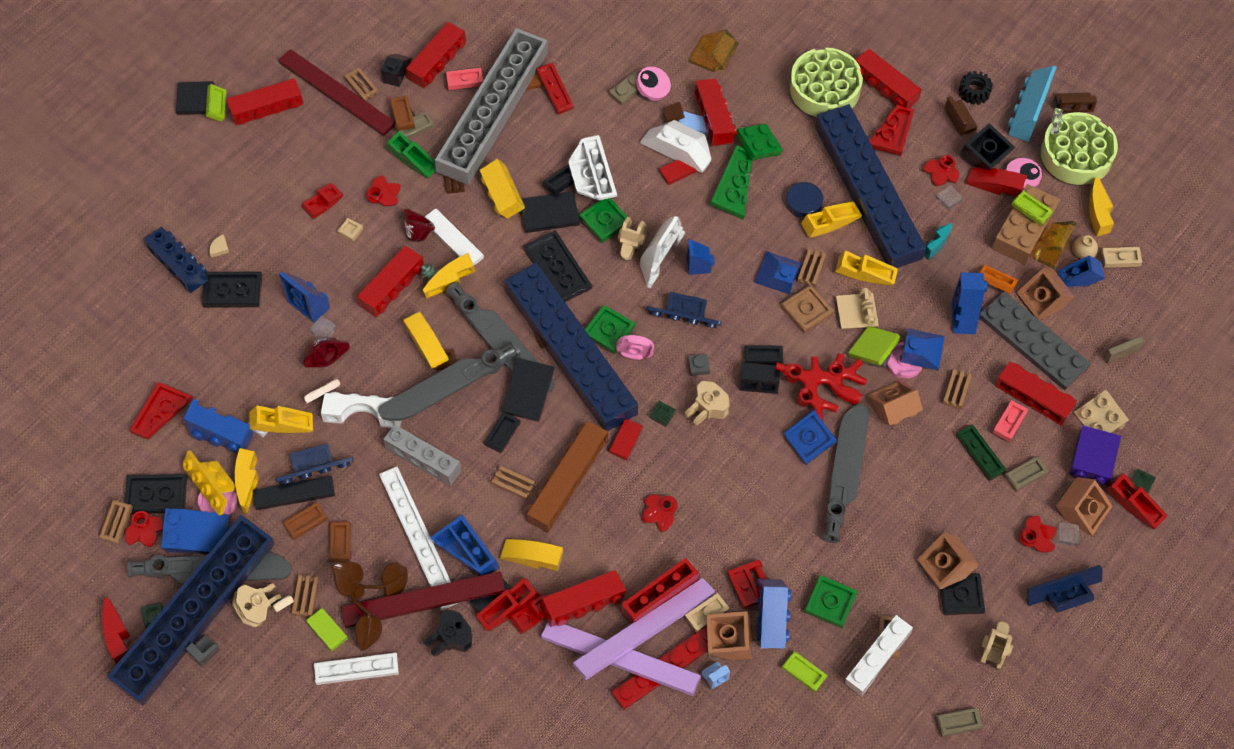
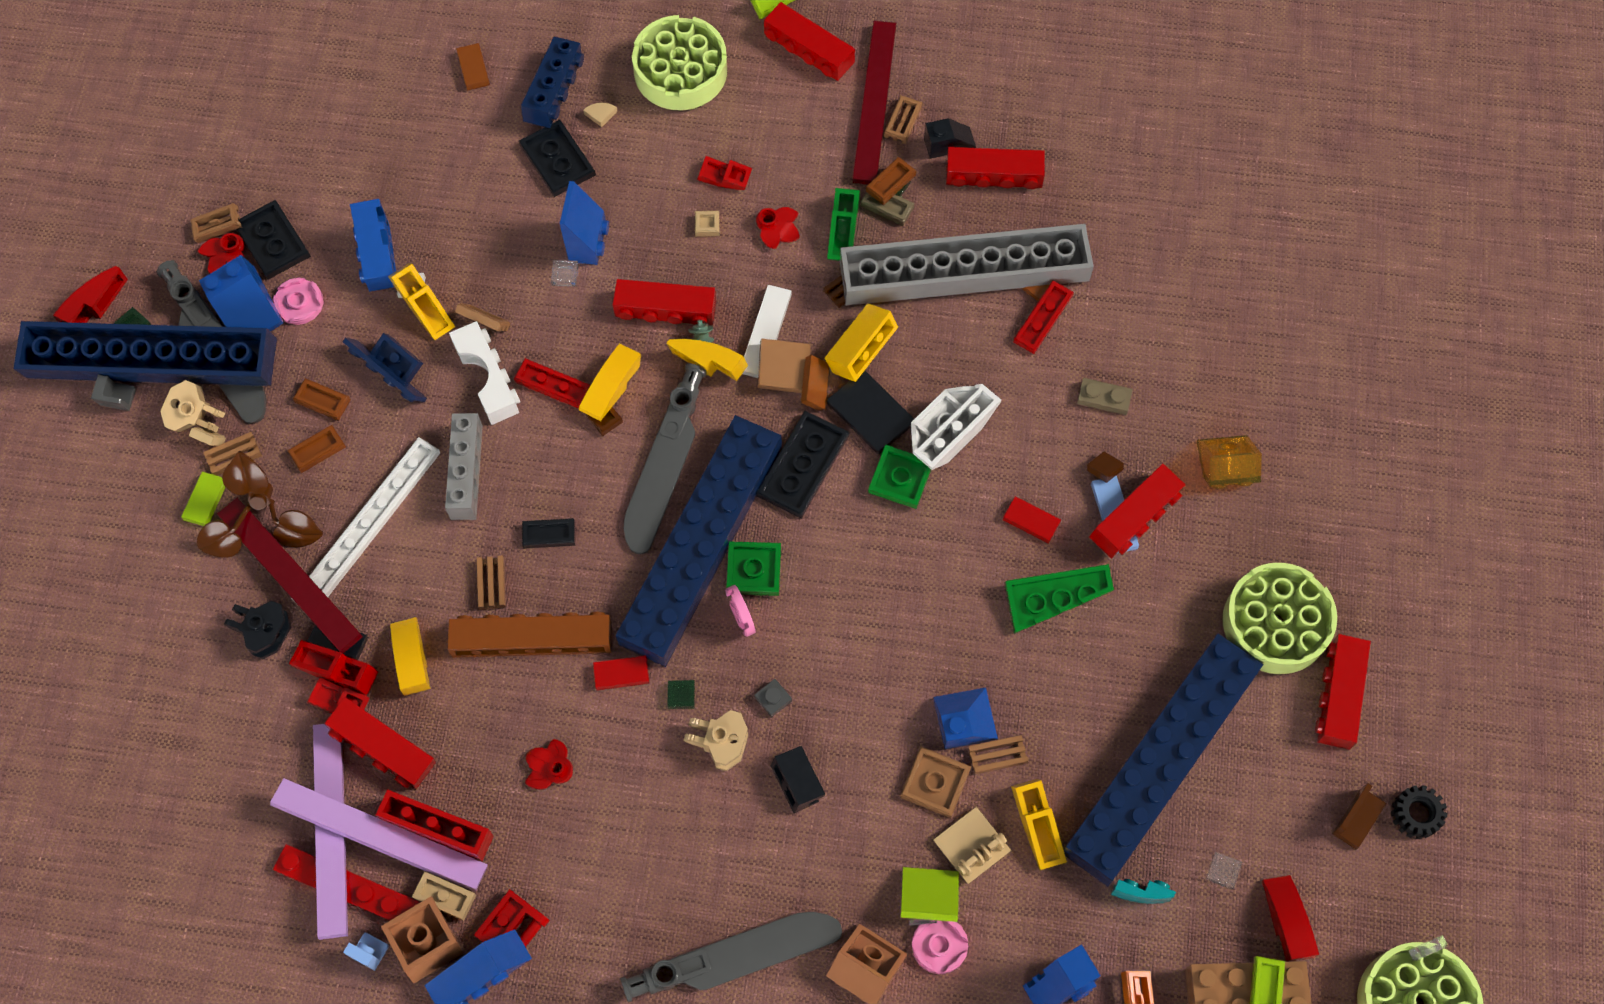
camera: 60 degrees right, 5 degrees up
(120, 303) = (473, 66): none -> dark orange tile
(159, 409) = (367, 180): red wing -> none
(210, 480) = (311, 280): yellow bracket -> none
(223, 179) = (679, 62): none -> yellowish green brick
(246, 477) = (332, 311): yellow slope -> none
(294, 493) = (348, 368): black tile -> none
(325, 352) = (531, 290): dark red hat -> none
(356, 668) = (175, 557): white tile -> none
(398, 376) = (551, 383): none -> red tile
(417, 226) = (752, 282): dark red hat -> none
(445, 383) = (563, 435): dark grey piece -> none
(464, 78) = (985, 214): coral plate -> none
(465, 546) = (374, 581): blue wedge -> none
(485, 239) = (782, 365): none -> medium nougat tile
(509, 229) = (815, 383): none -> dark orange tile
(528, 389) = (617, 527): black tile -> none
(558, 181) = (915, 395): black tile -> none
(630, 238) = (890, 519): tan hinge -> none
(653, 83) = (1129, 419): bright pink tile -> none
(668, 234) = (897, 558): white wedge -> none
(679, 144) = (1066, 499): white wedge -> none
(685, 307) = (836, 639): dark blue bracket -> none
(698, 258) = (913, 612): blue slope -> none
(759, 141) = (1134, 588): green plate -> none
(763, 354) = (835, 766): black tile -> none
(804, 199) = (1090, 690): dark blue tile -> none
(810, 437) = (751, 886): blue tile -> none
(815, 376) = (838, 846): red plant -> none
(830, 219) = (1084, 738): yellow slope -> none
(894, 131) = (1272, 744): red wing -> none
(922, 349) = (966, 957): blue slope -> none
(940, 172) = (1254, 839): red plate -> none
(986, 148) = (1327, 879): black slope -> none
(1026, 167) = (1336, 949): bright pink tile -> none
(1031, 103) = (1446, 900): medium azure slope -> none
(1075, 102) = (1498, 959): reddish brown panel -> none

